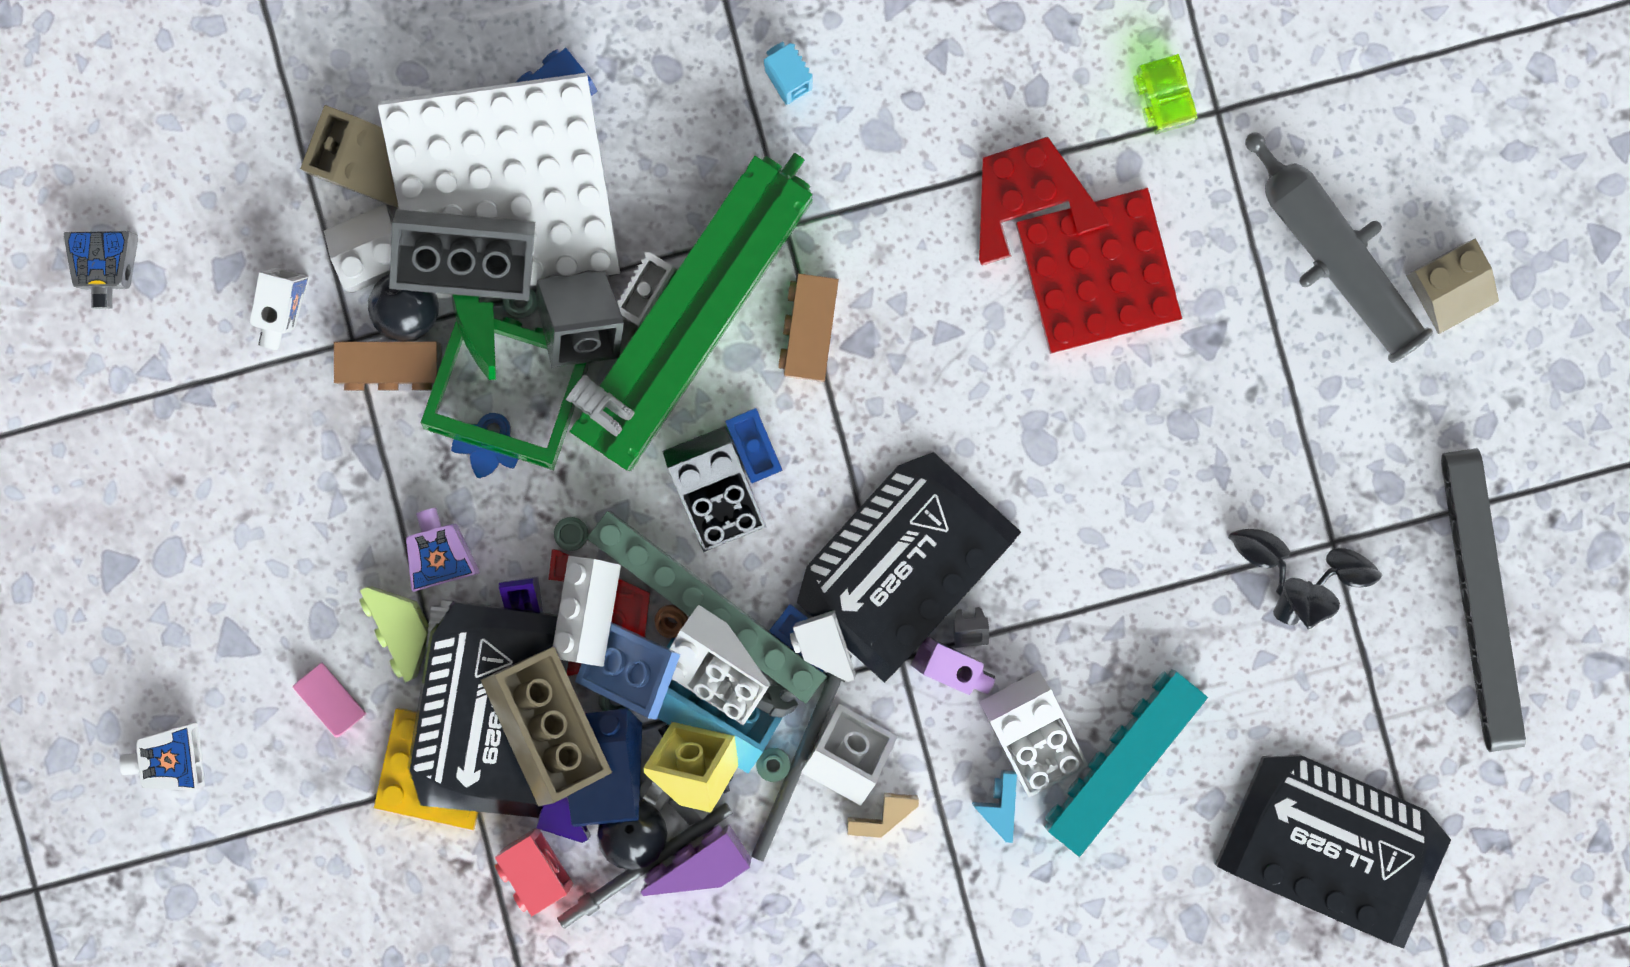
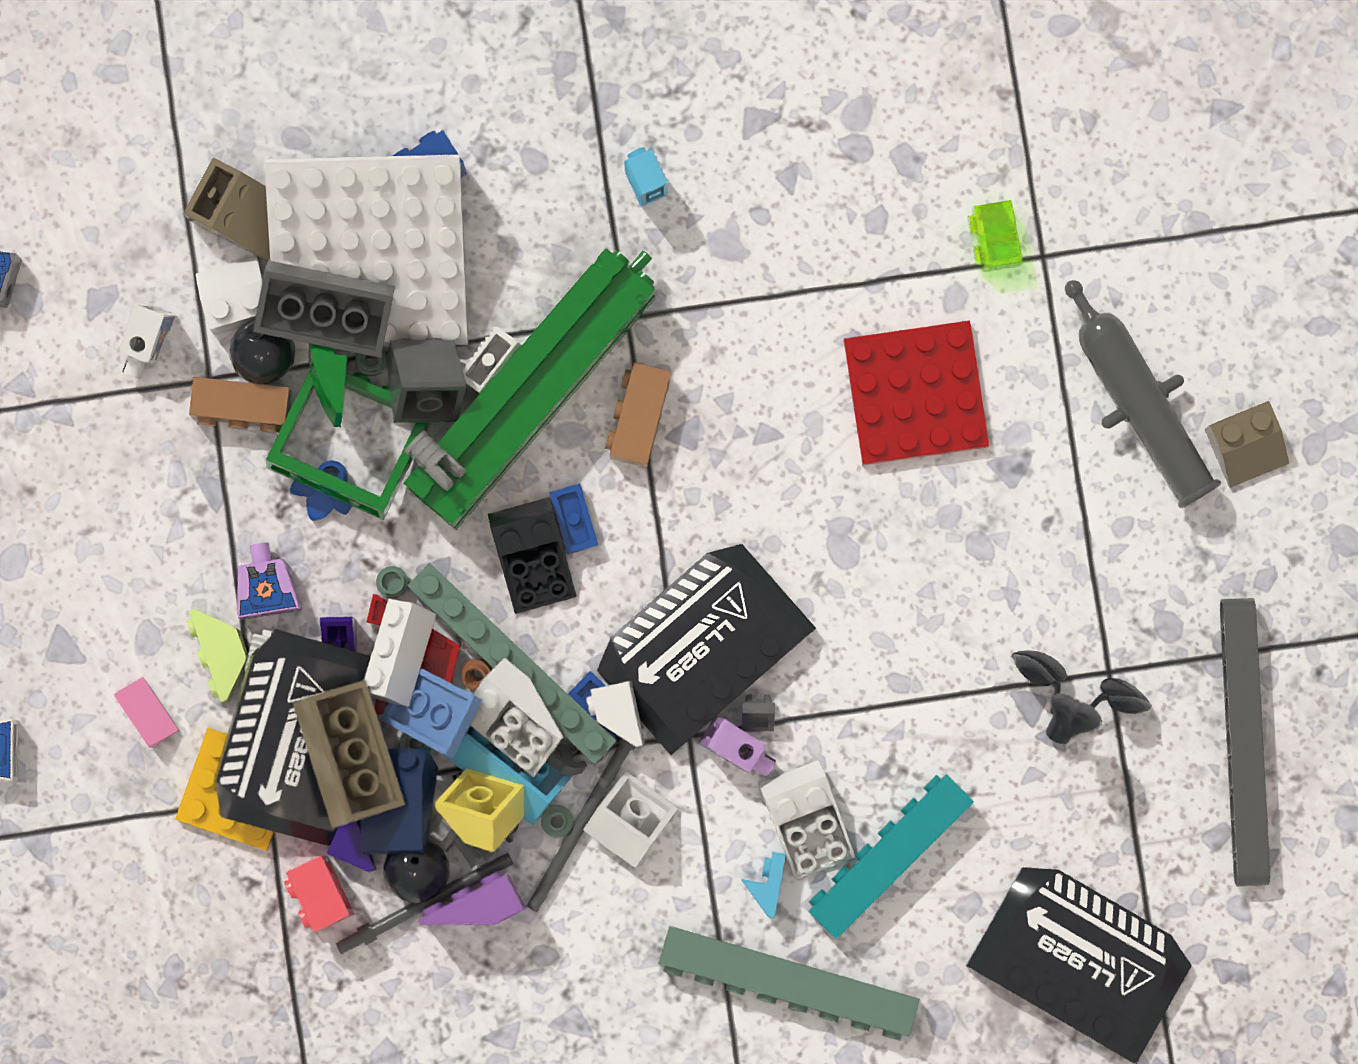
camera: 10 degrees right, 5 degrees down
(895, 809) = (666, 876): tan slope -> none
(1024, 183) = (854, 303): red wing -> none
(1034, 904) = (789, 981): none -> sand green brick

